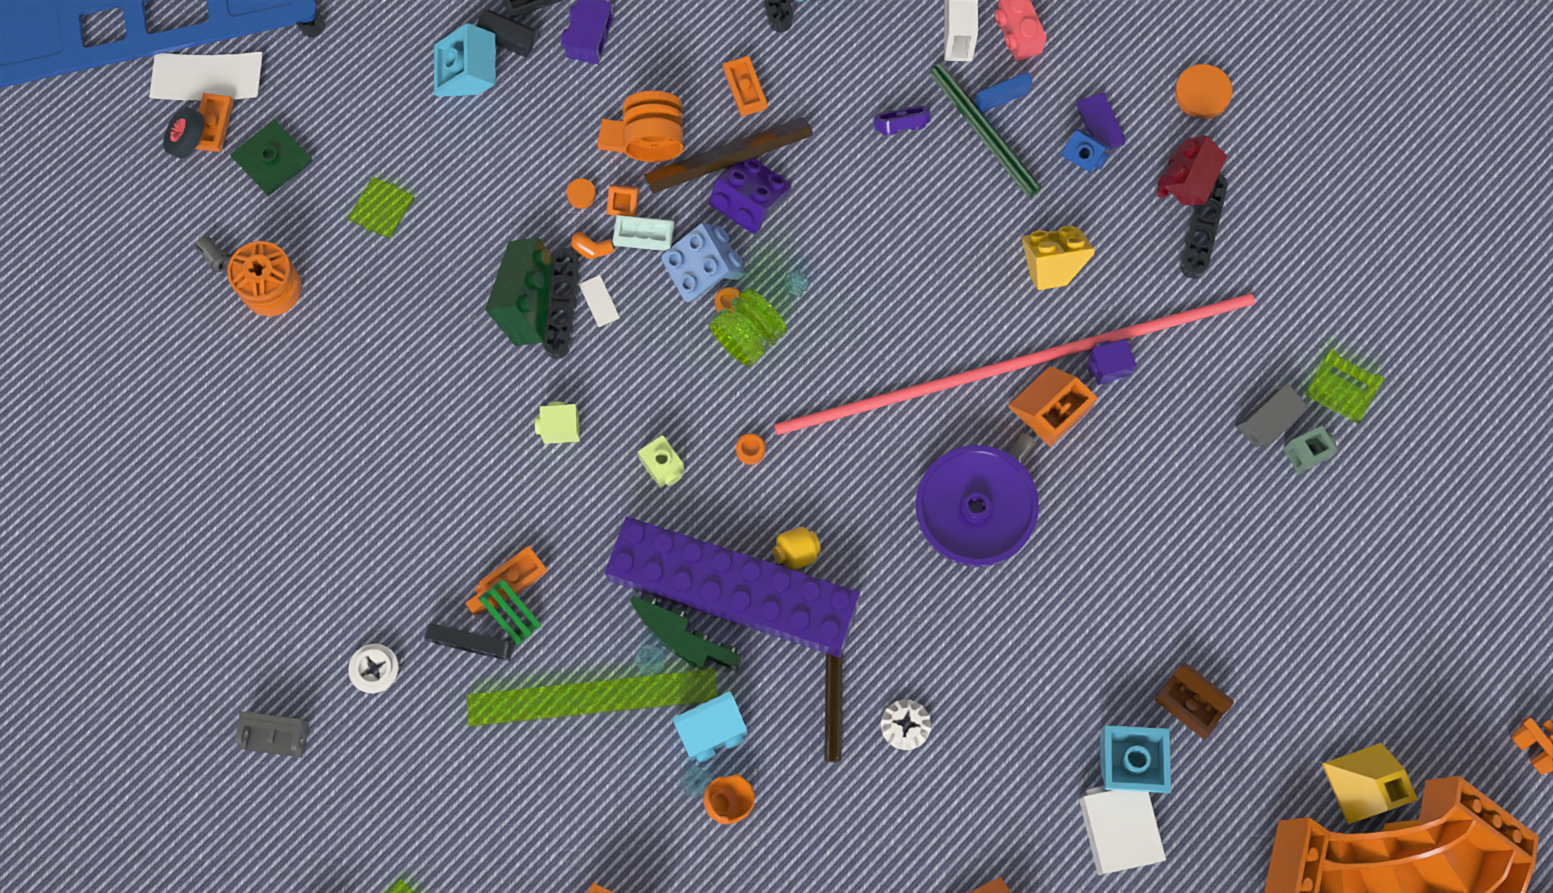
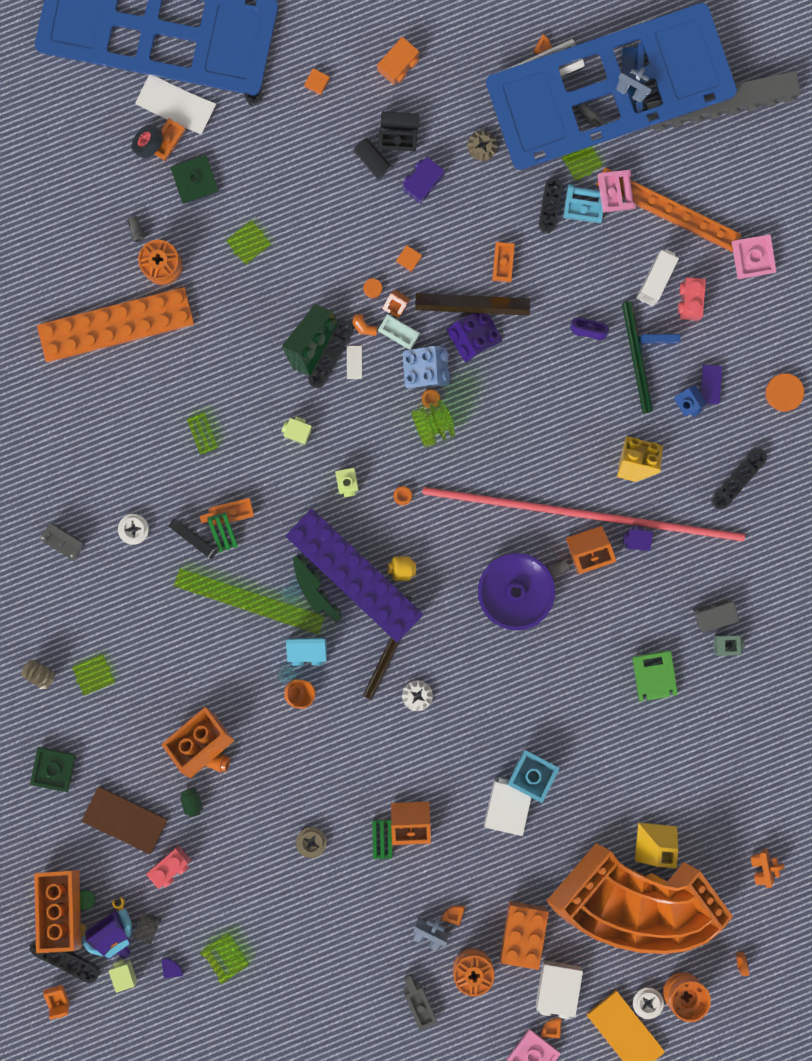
camera: 25 degrees right, 15 degrees up
(232, 394) = (115, 325): none -> orange plate
(404, 470) = (196, 418): none -> clear neon green tile
(464, 62) = (337, 169): medium azure slope -> none
(652, 126) = (435, 263): orange wheel -> none
(796, 283) = (475, 405): clear light blue plate -> none
(1192, 171) = (747, 444): dark red brick -> none
(1194, 700) = (583, 756): reddish brown bracket -> none
(1236, 543) = (654, 679): none -> bright green container
(1340, 394) = (764, 619): clear neon green plate -> none

